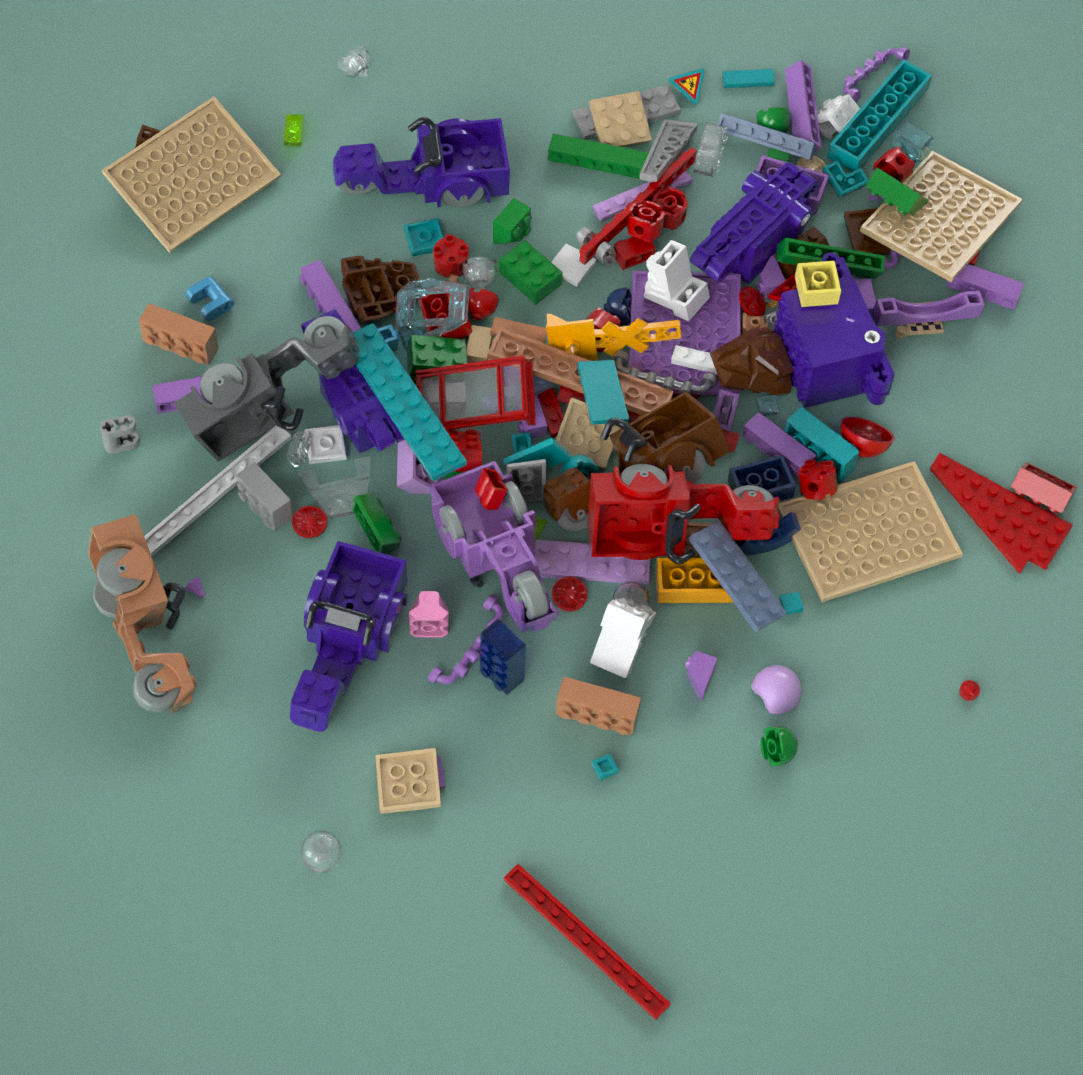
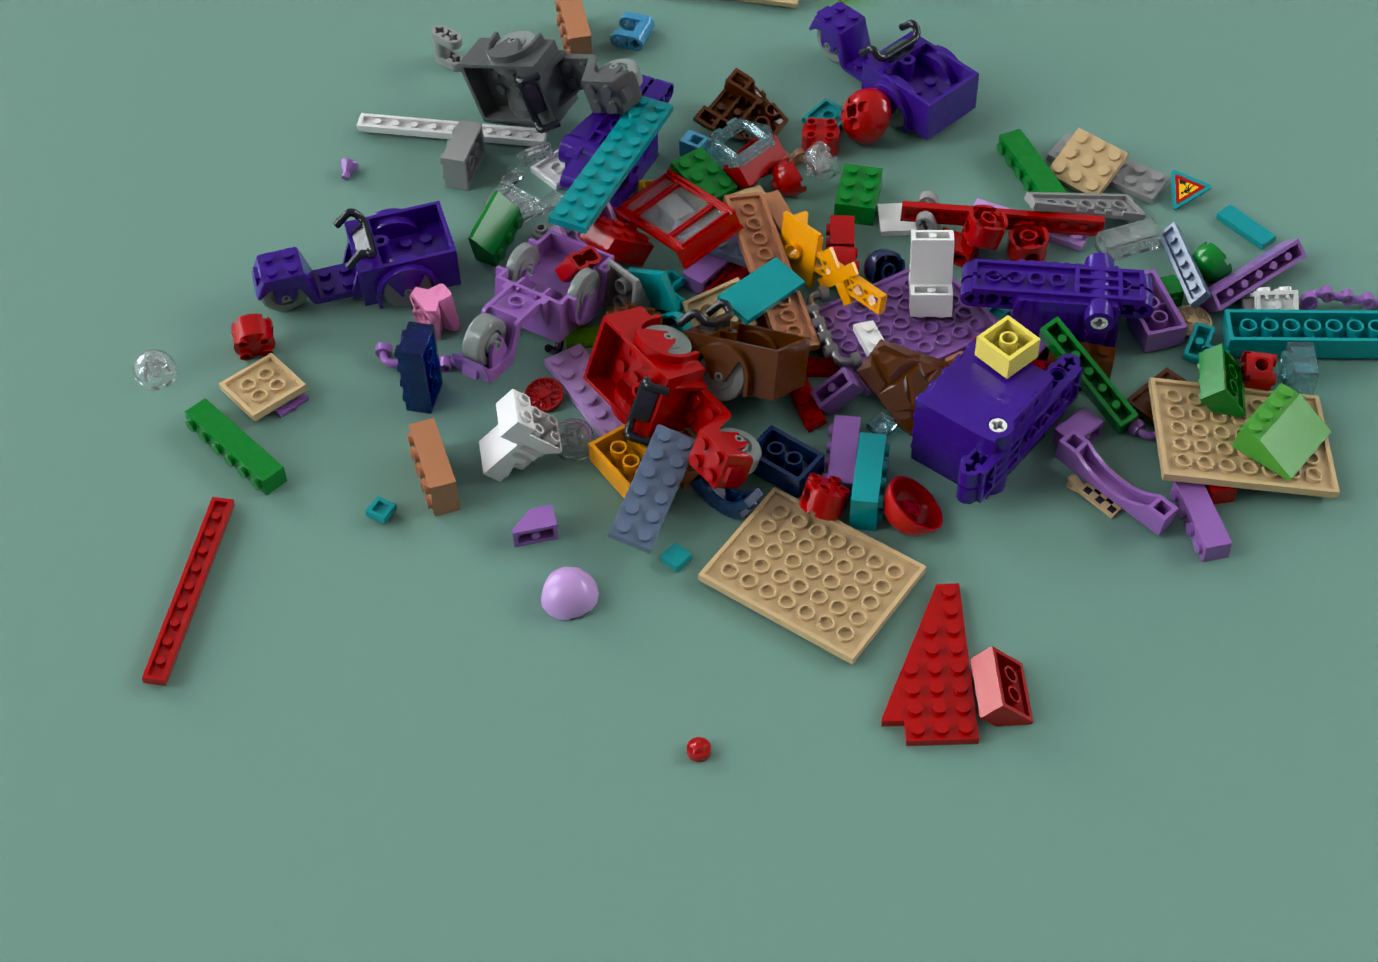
camera: 60 degrees right, 10 degrees down
(134, 595) = (286, 123): nougat piece -> none
(309, 521) = (470, 199): red wheel -> none
(325, 293) = (701, 92): medium lavender brick -> none
(352, 758) = (253, 336): none -> red brick
(389, 500) = (539, 230): none -> light grey plate
(459, 834) = (235, 446): none -> green brick
(461, 203) = (866, 115): none -> red piece
(512, 223) = (892, 152): green slope -> none
(564, 307) = (840, 231): none -> red brick
(778, 745) = (503, 622): green cylinder -> none
(958, 192) = (1282, 433): none -> bright green slope

